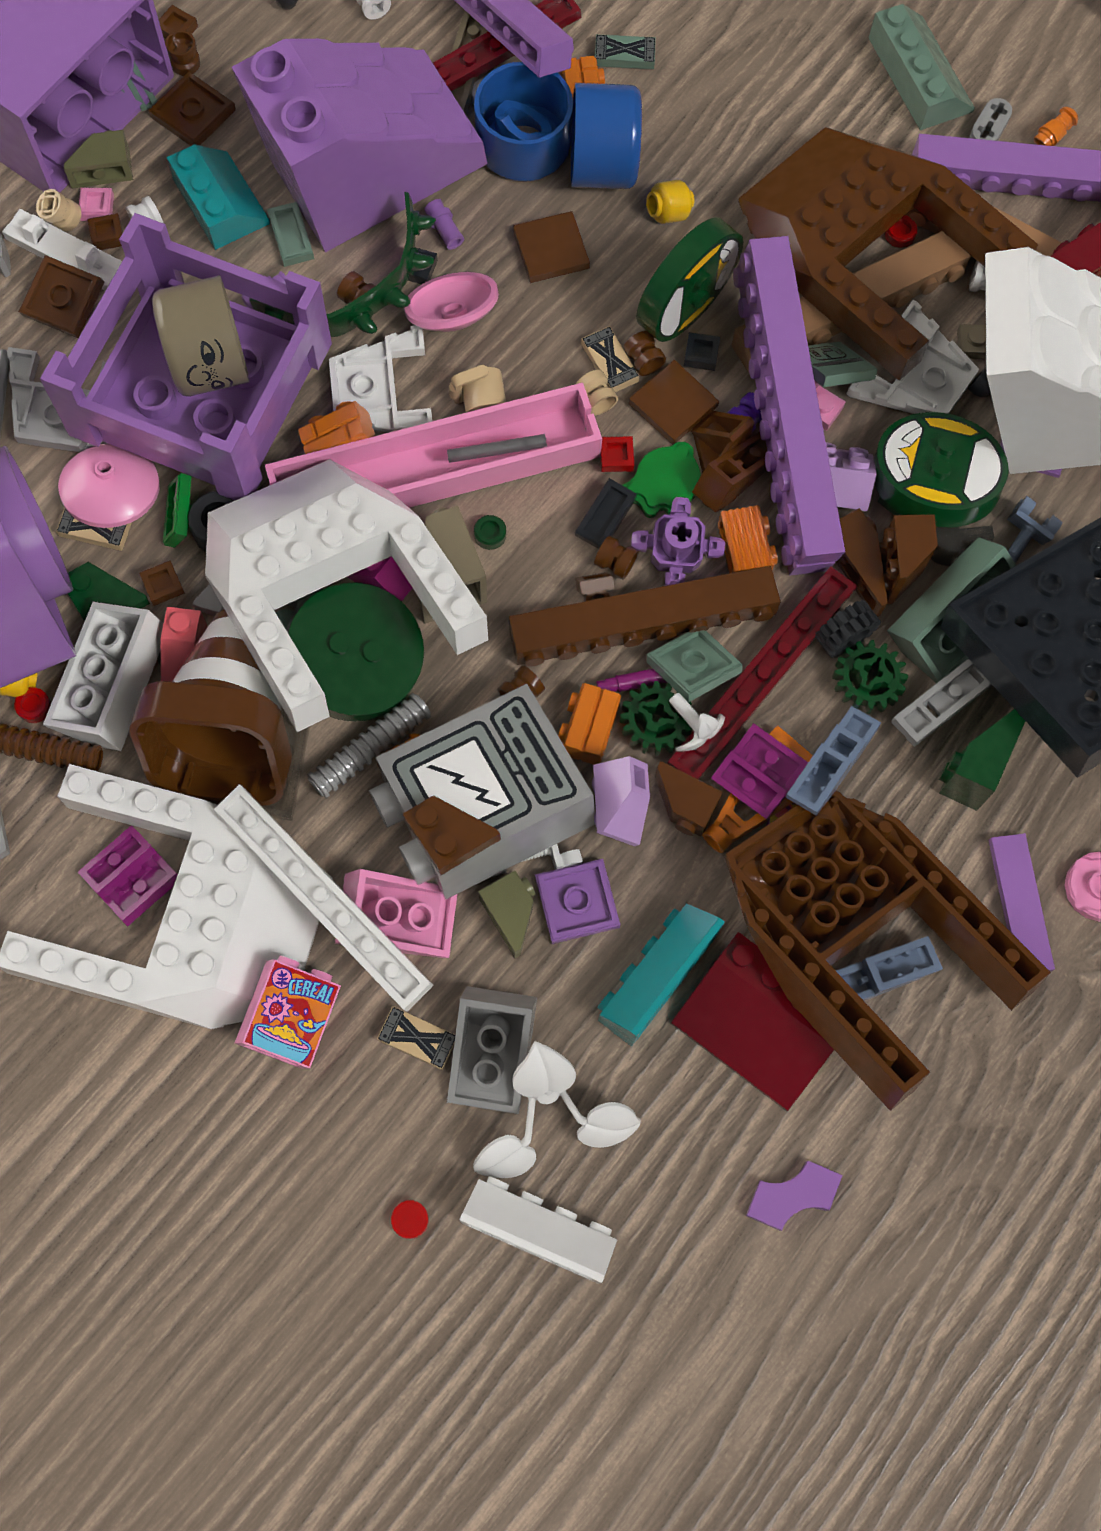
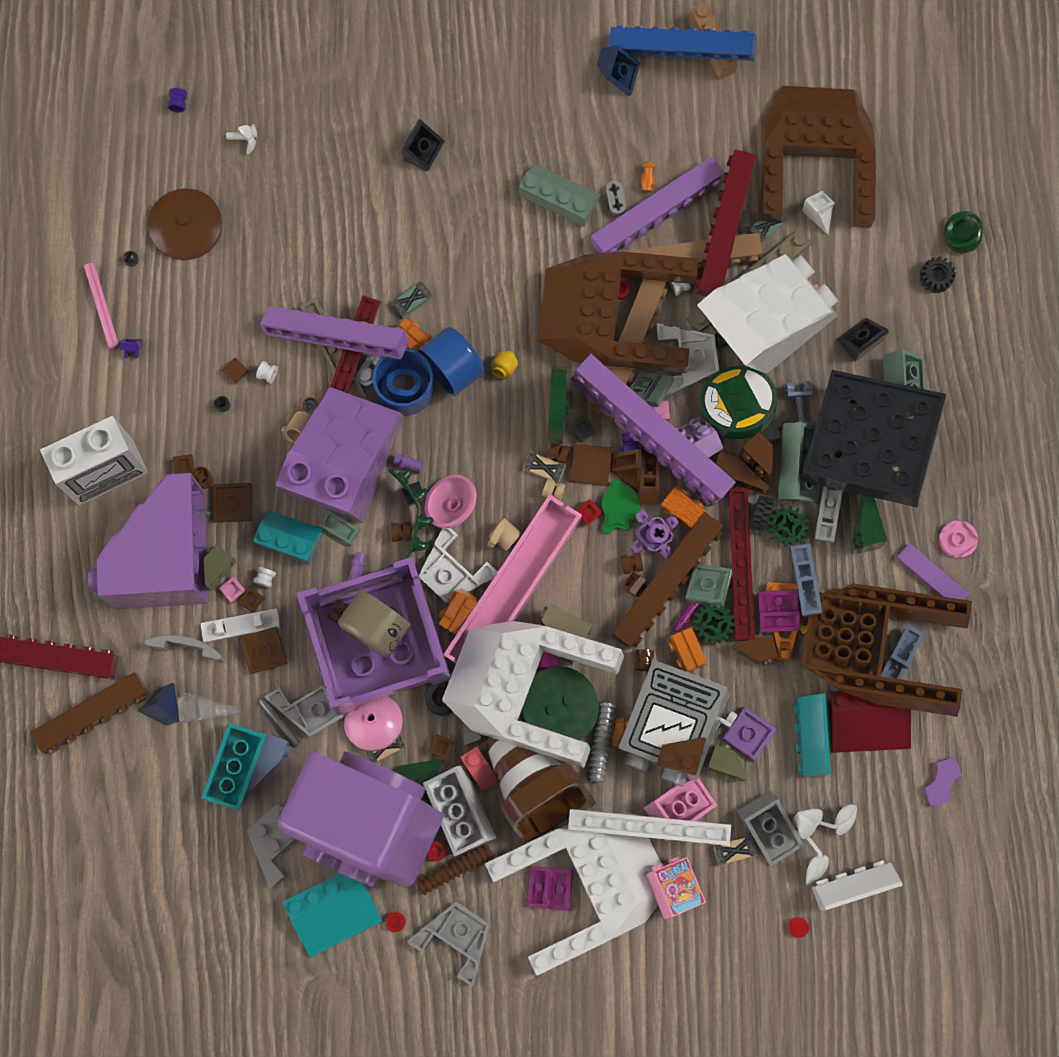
camera: 35 degrees left, 5 degrees up
(57, 209) = (222, 609): tan wheel -> none
(177, 510) = (417, 707): green plate -> none
(490, 532) = (564, 597): dark green tile -> none
(497, 448) = (538, 558): flat silver bar -> none
(551, 247) = (467, 432): reddish brown tile -> none
(606, 513) = (608, 546): black tile -> none
(621, 798) = (734, 675): lavender slope -> none
(703, 725) = (740, 614): white plant -> none

